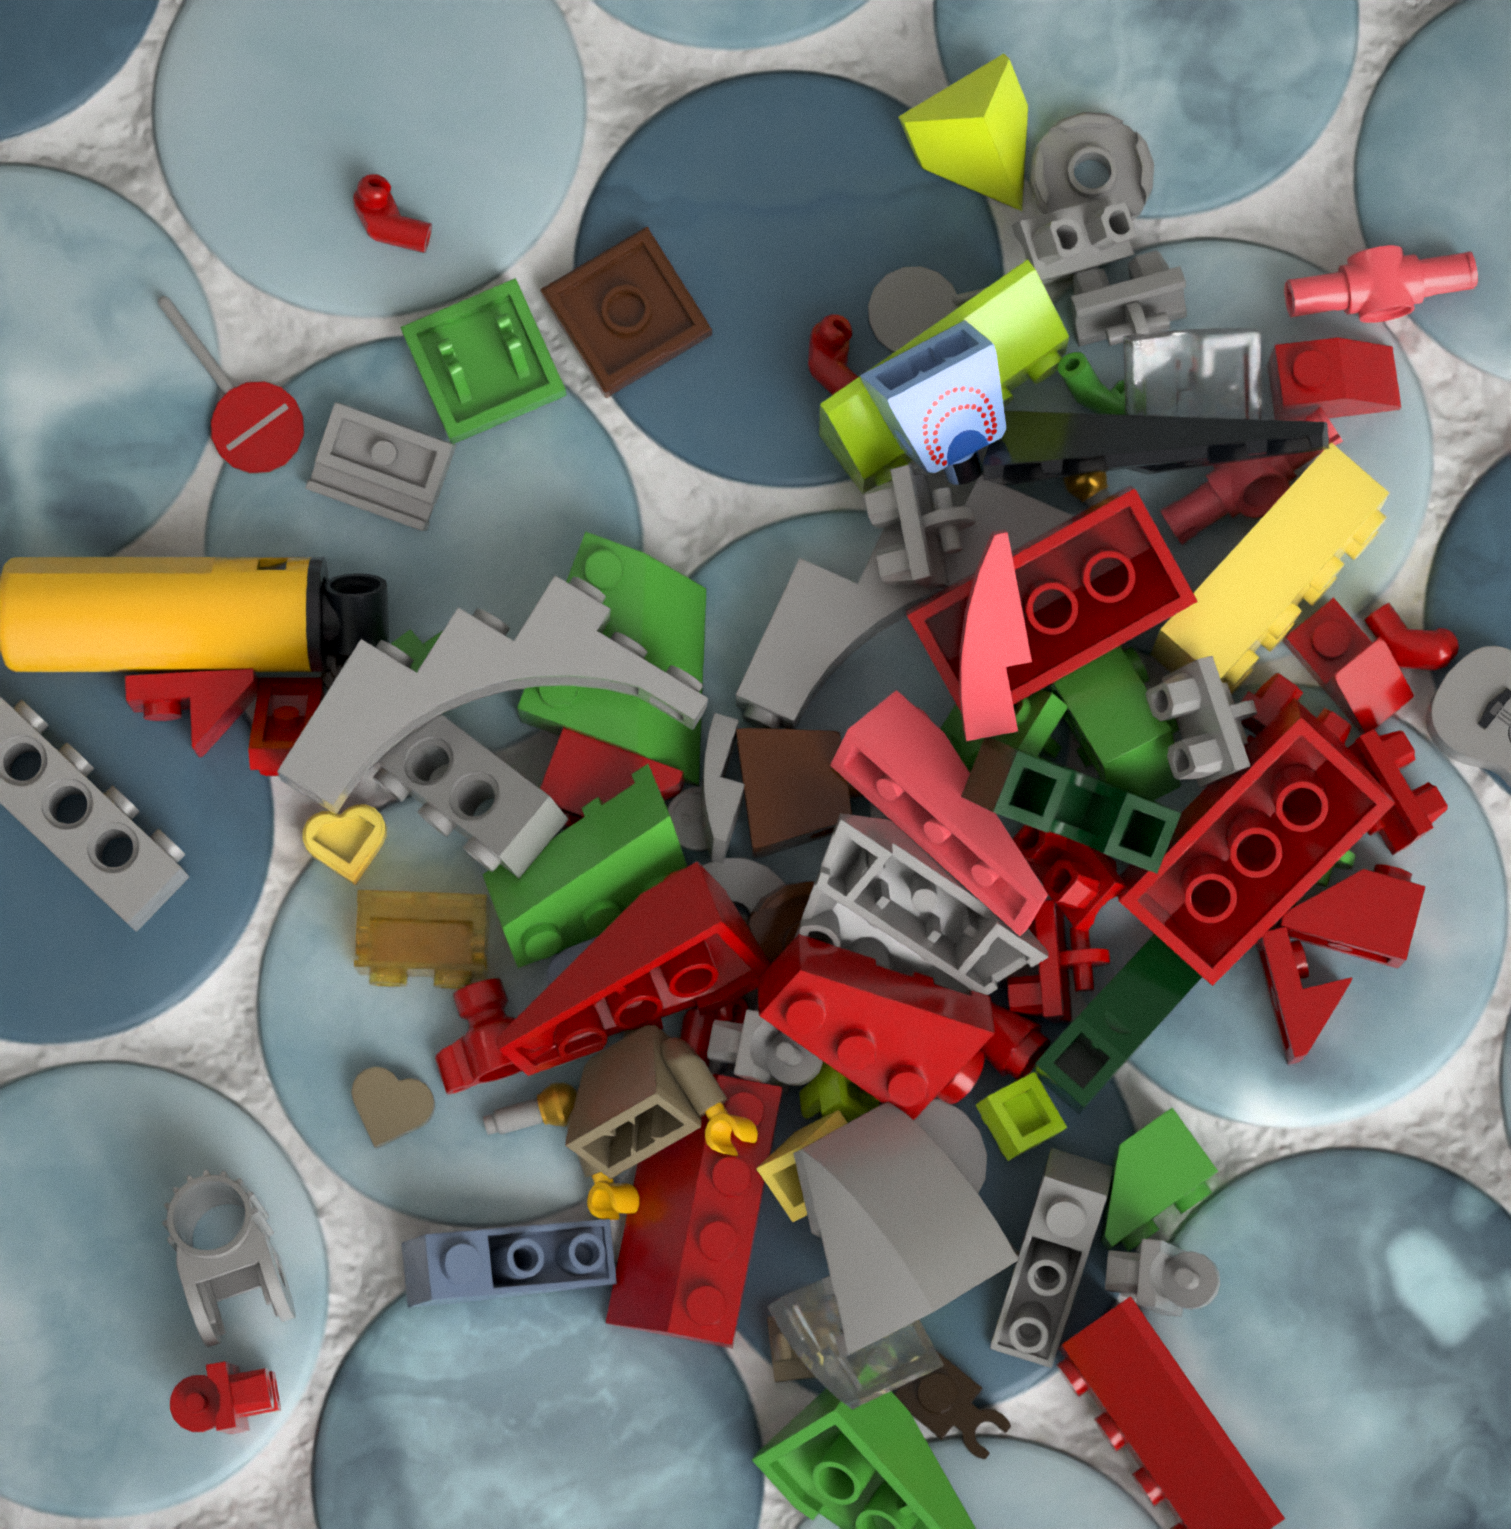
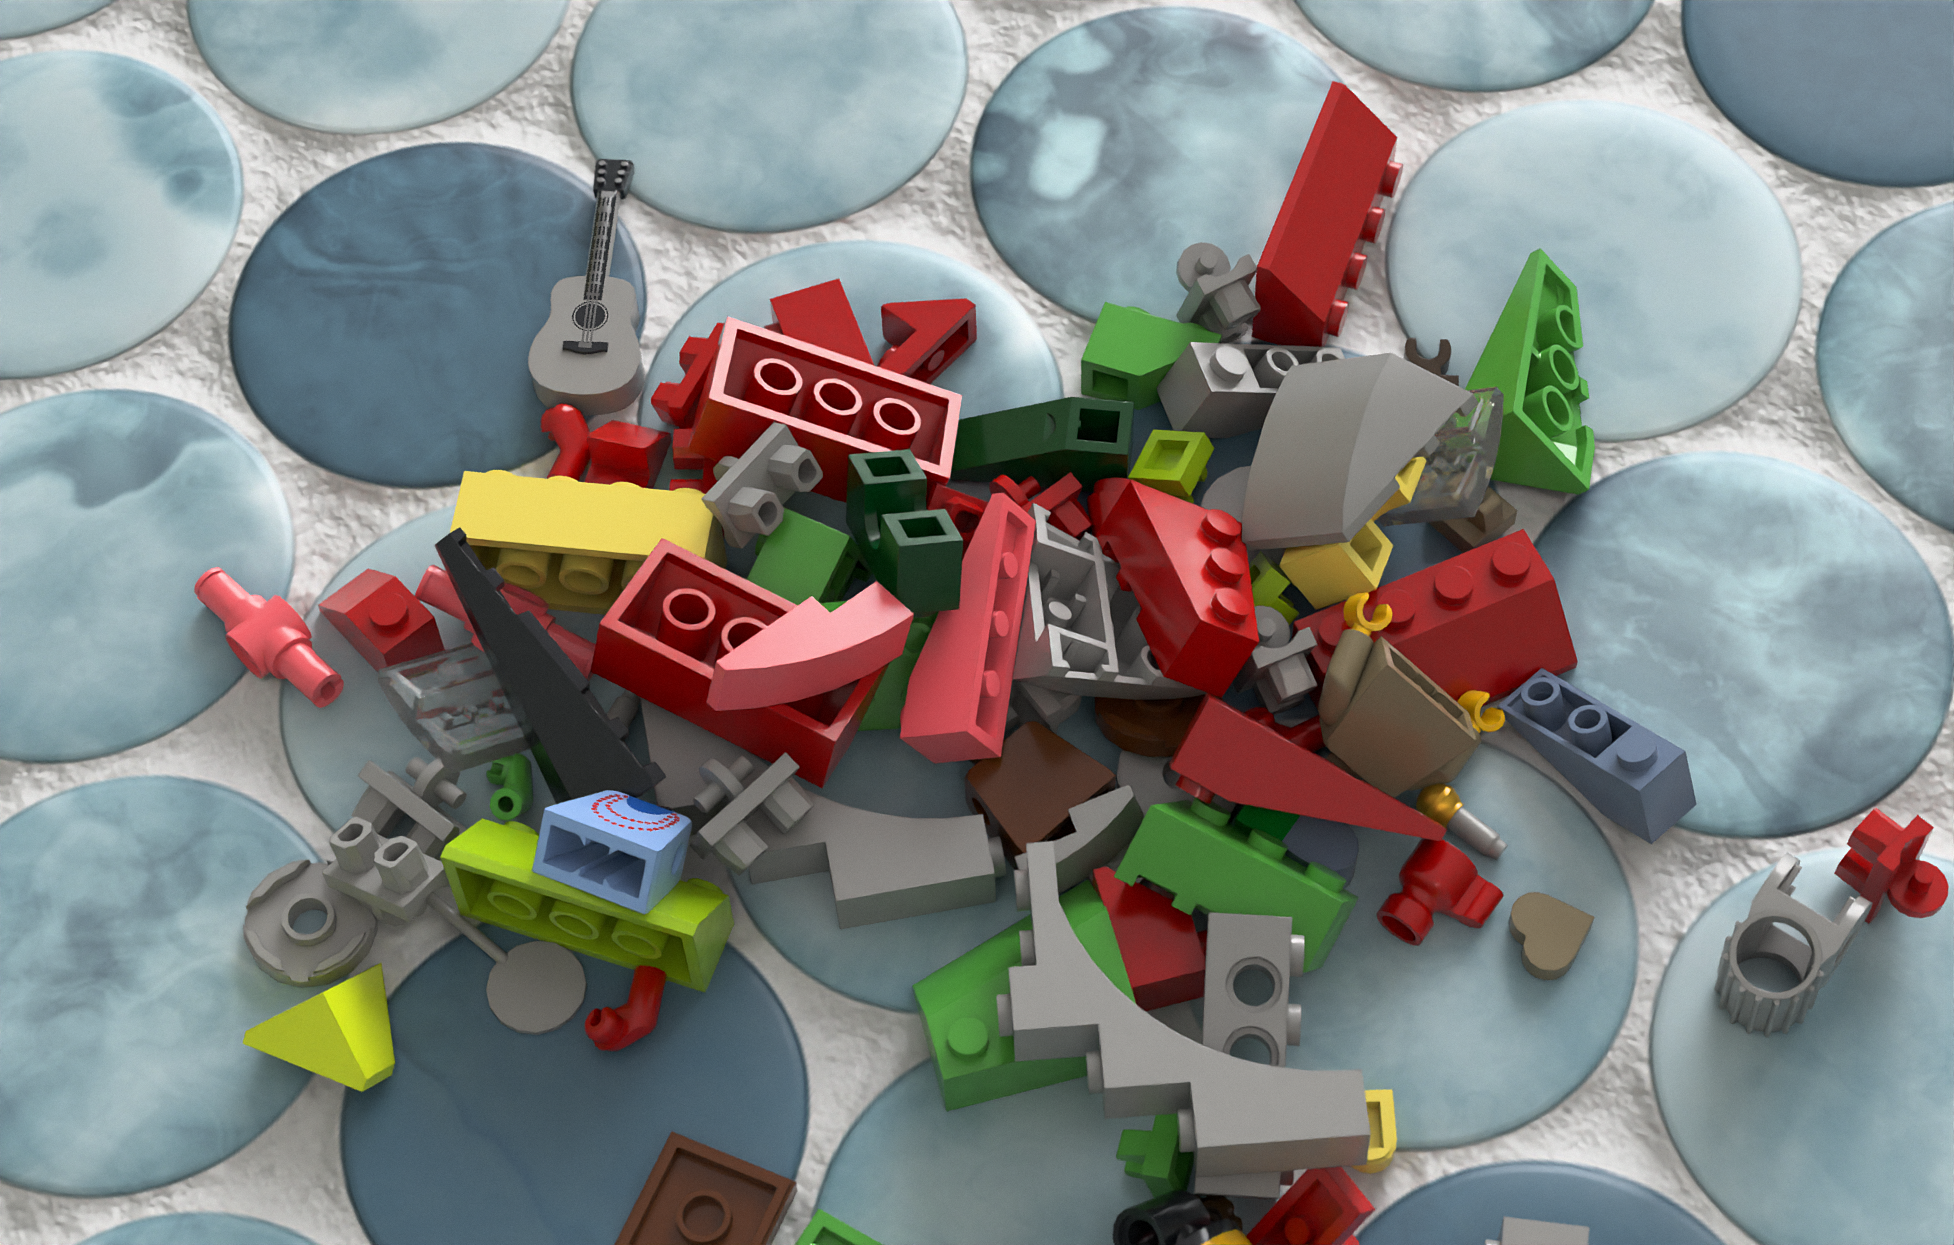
camera: 125 degrees left, 20 degrees down
(422, 937) = (1394, 996): clear yellow hinge -> none

